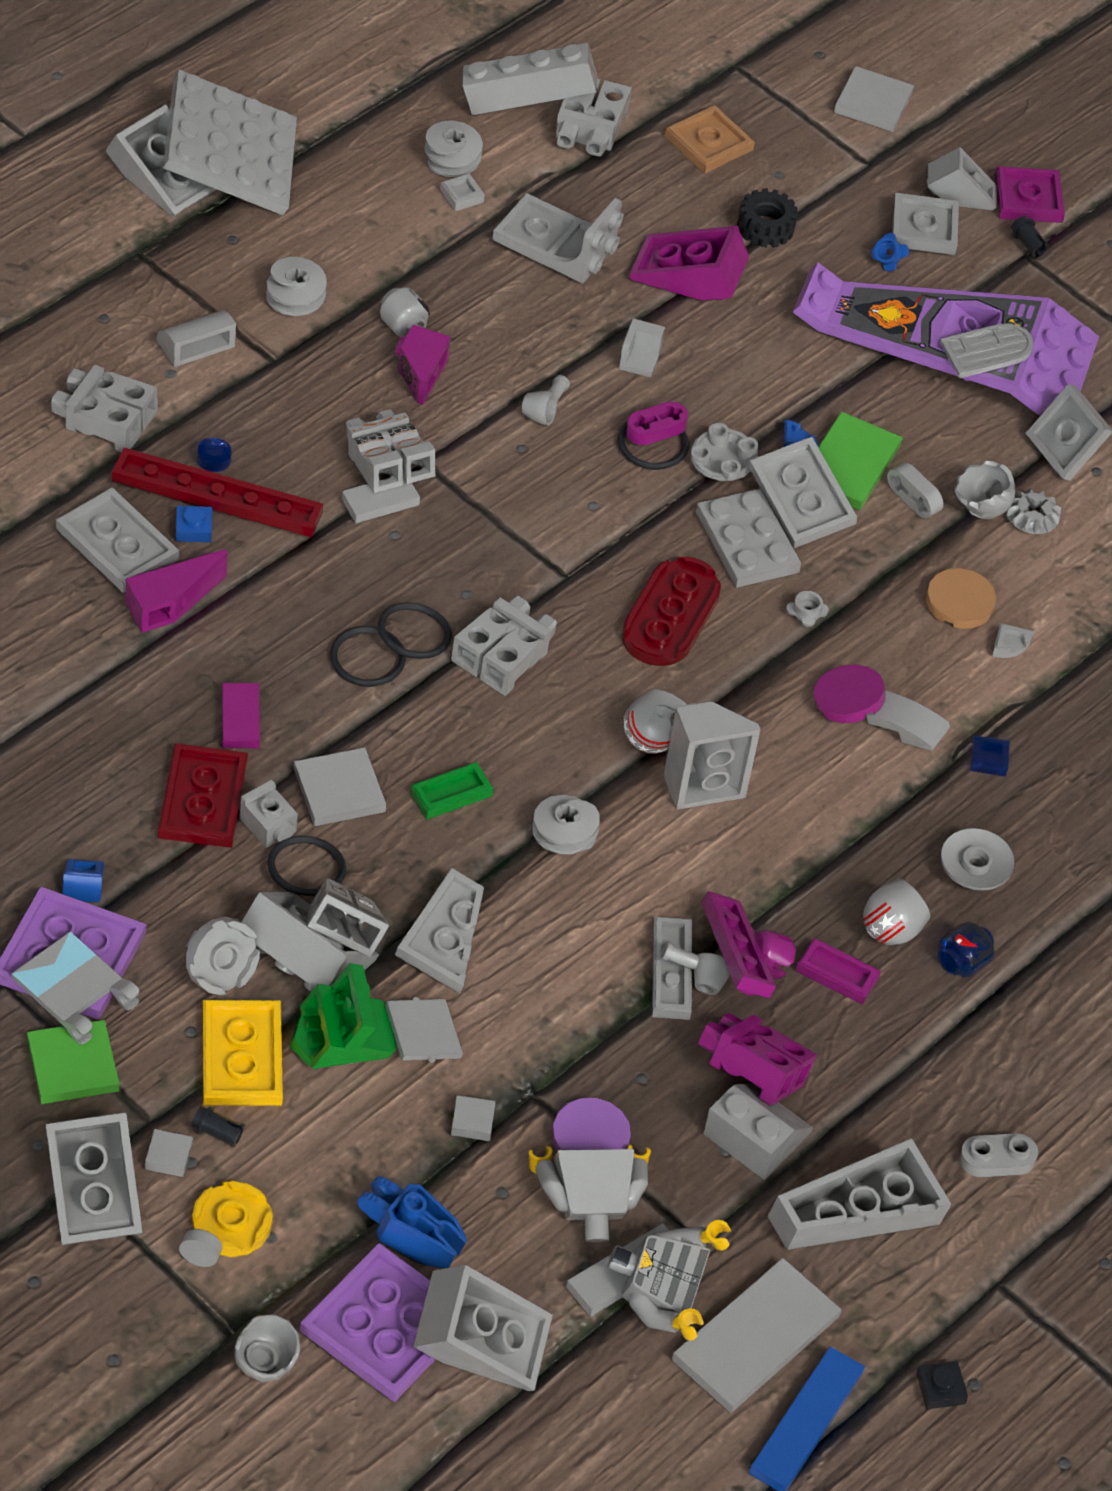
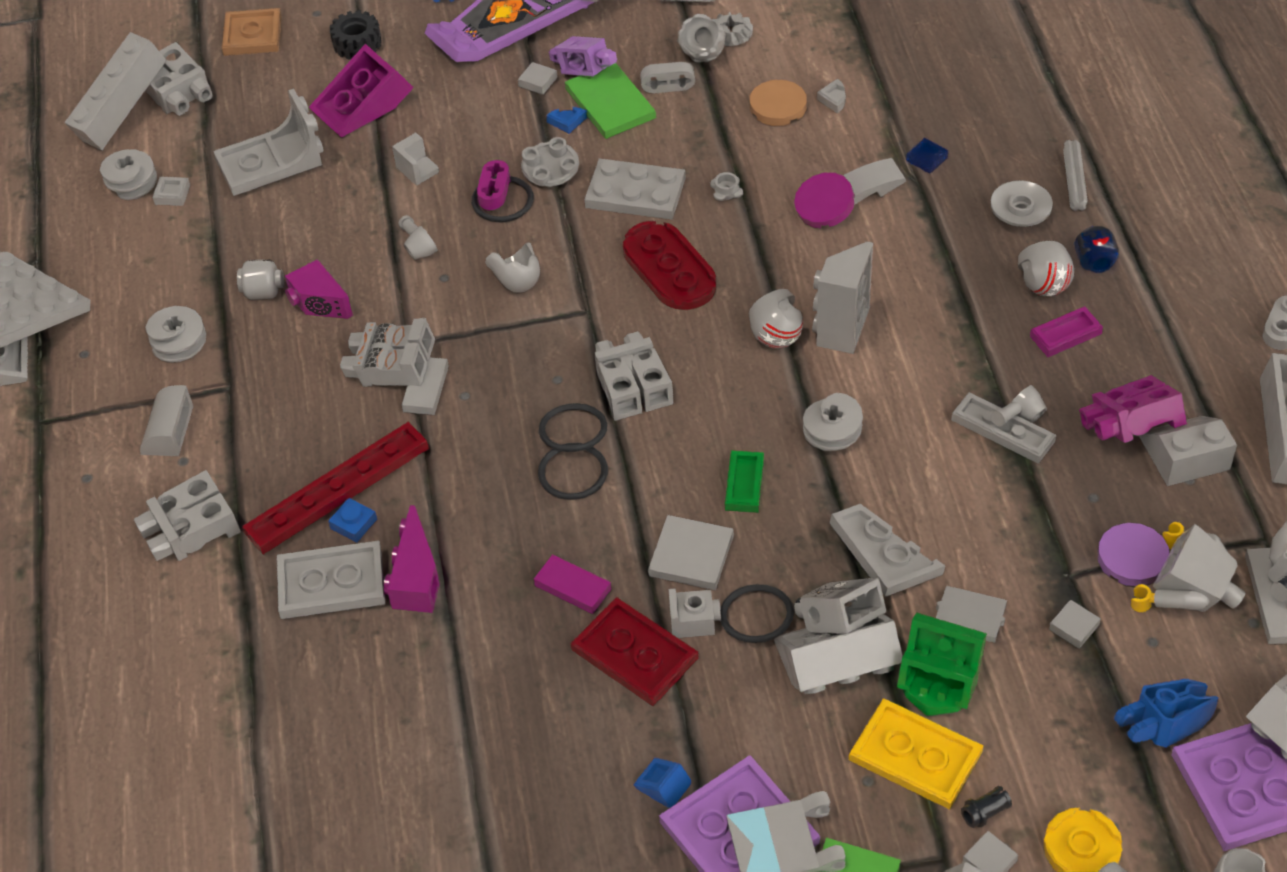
camera: 45 degrees left, 0 degrees up
(214, 454) = (294, 471): clear blue tile -> none
(222, 955) = (822, 713): light grey tile -> none
(561, 495) = (518, 271): none -> light grey hair
(749, 955) = (1031, 364): magenta plate -> none
(803, 492) = (624, 134): light grey plate -> none
(832, 389) = (537, 78): none -> light grey tile
(879, 406) = (583, 56): none -> medium lavender piece
(1063, 893) = (1075, 175): none -> light grey axle

